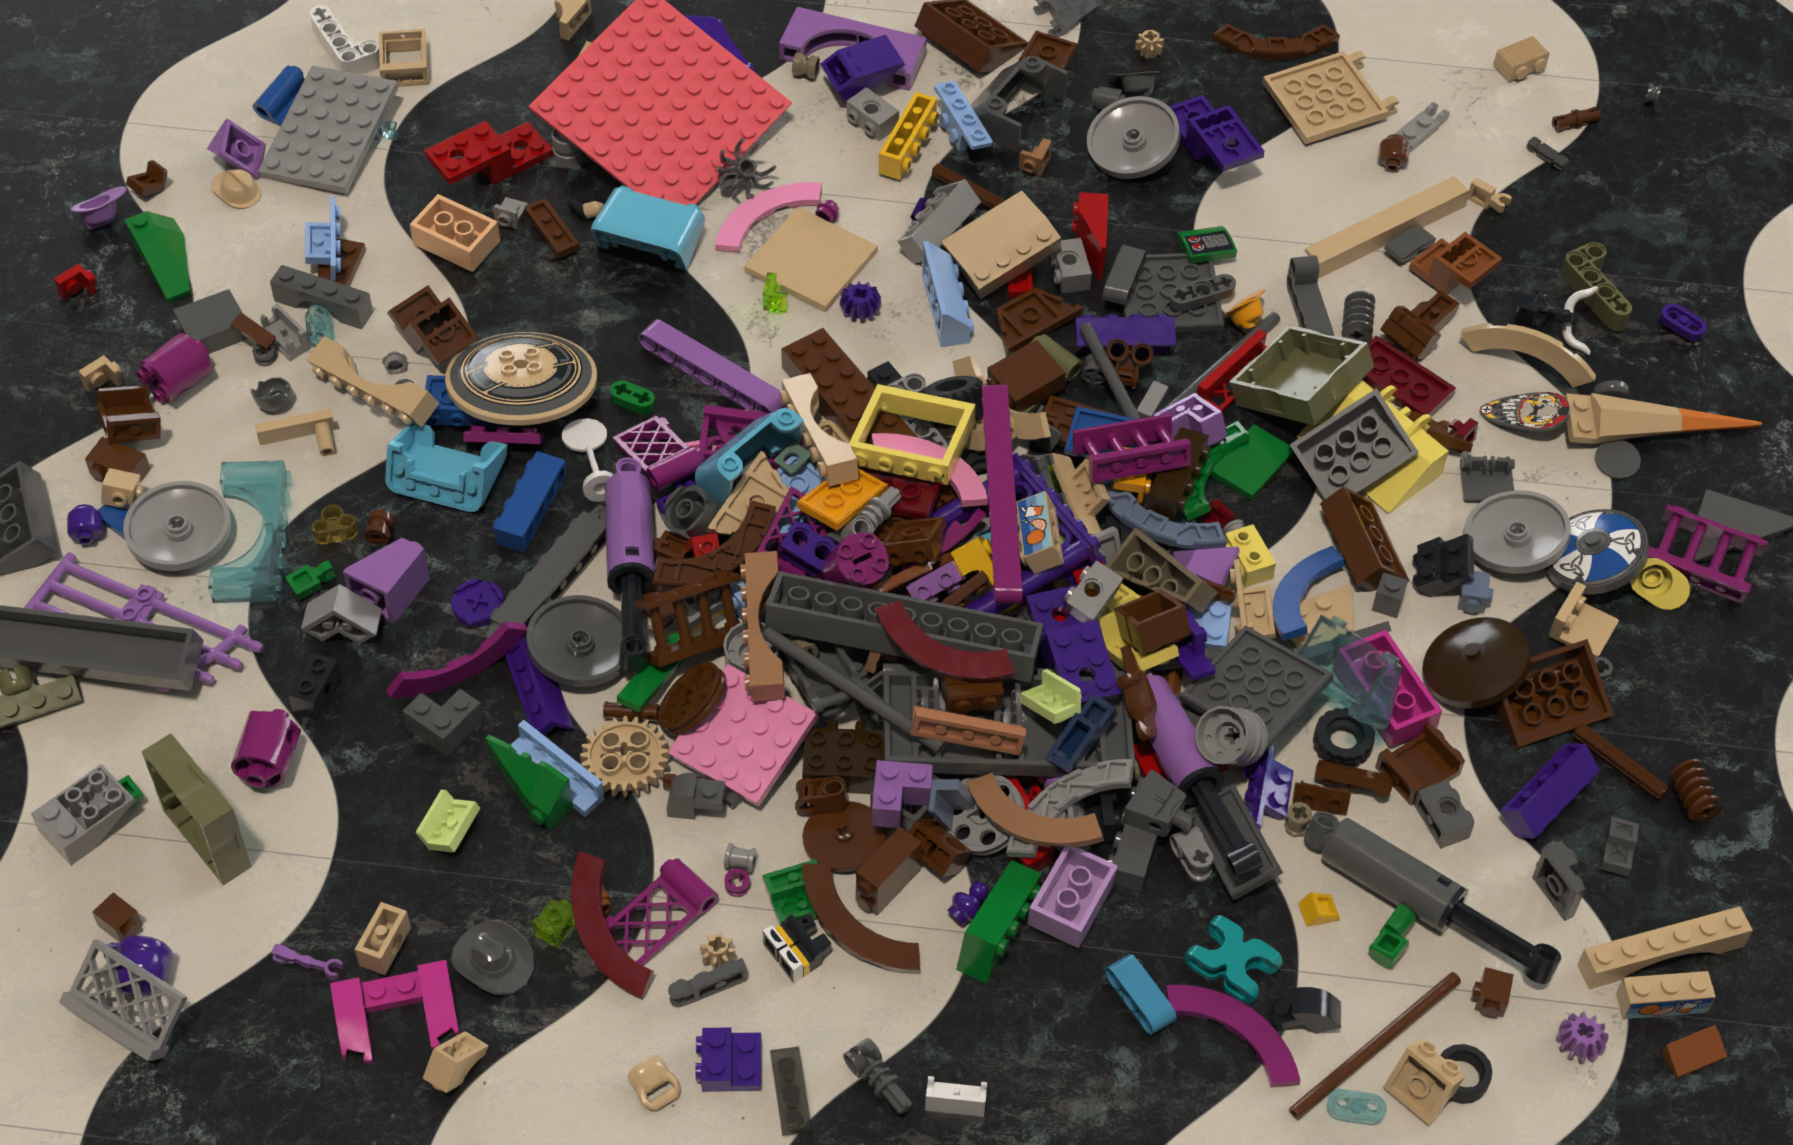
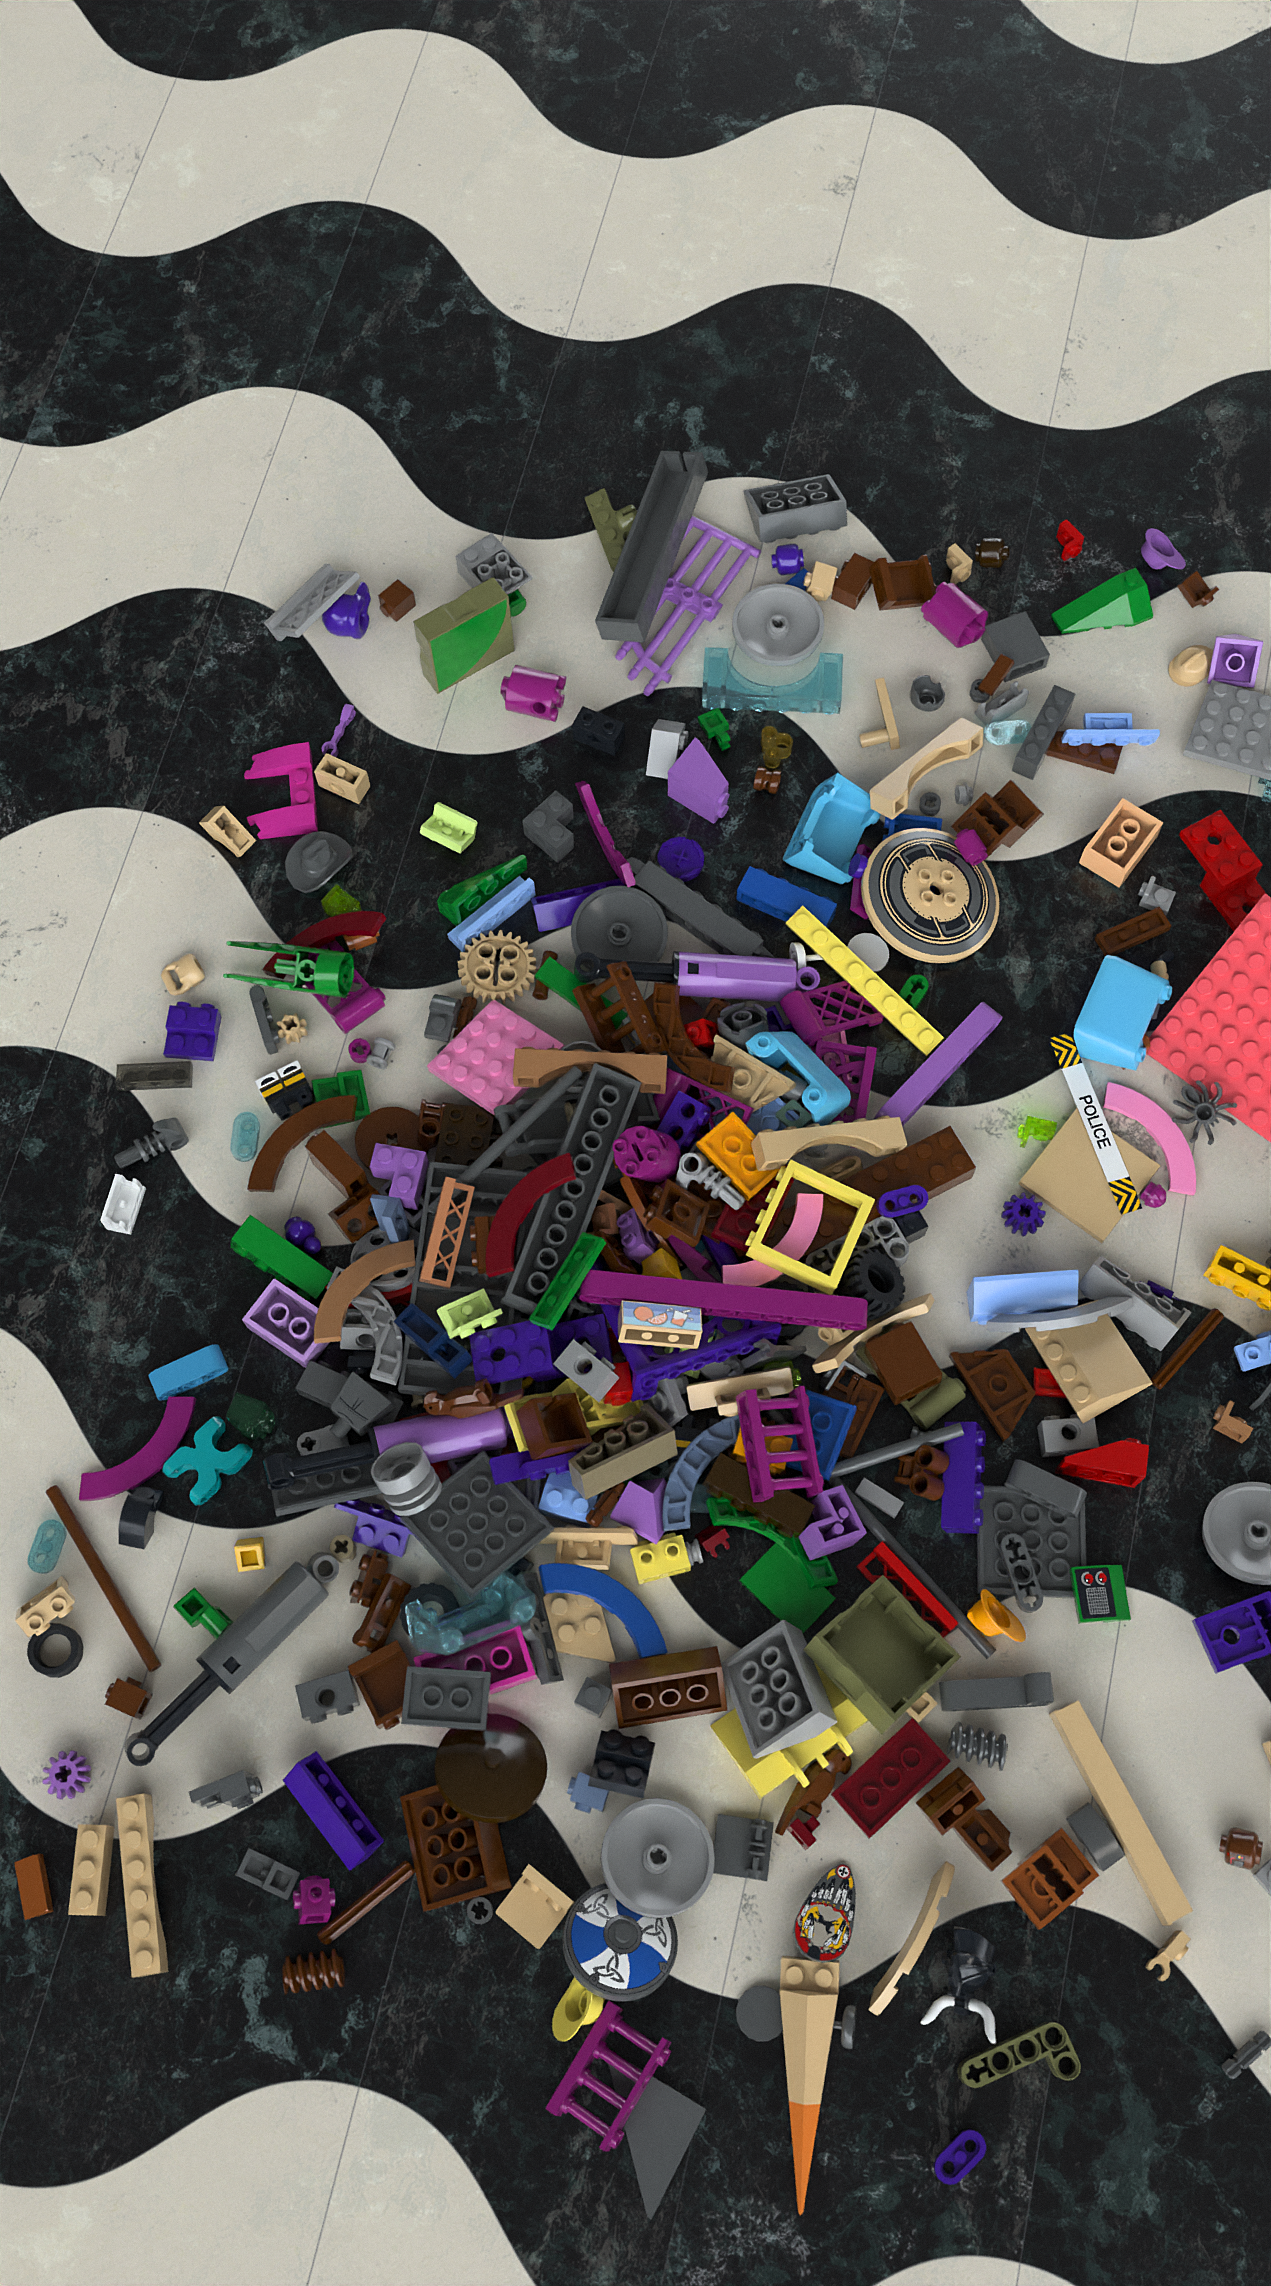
camera: 100 degrees right, 15 degrees up
(87, 345) = (991, 552): none -> dark brown head
(469, 339) = (971, 847): none -> magenta brick
(495, 430) = (857, 866): none -> dark purple tile
(622, 428) = (865, 981): none -> light yellow plate
(657, 907) = (331, 975): none -> green piece
(691, 698) = (539, 1017): reddish brown wedge -> none
(757, 252) = (1095, 1123): none -> sticker
(856, 980) = (245, 1138): none -> clear light blue plate
(870, 371) = (901, 1201): none -> dark purple plate
(974, 253) = (1061, 1319): none -> light grey tile
(1008, 606) = (567, 1281): none -> green tile
(1183, 915) = (250, 1417): none -> clear green brick
(1430, 691) = (446, 1698): none -> dark grey plate
(1634, 795) = (314, 1900): none -> magenta brick

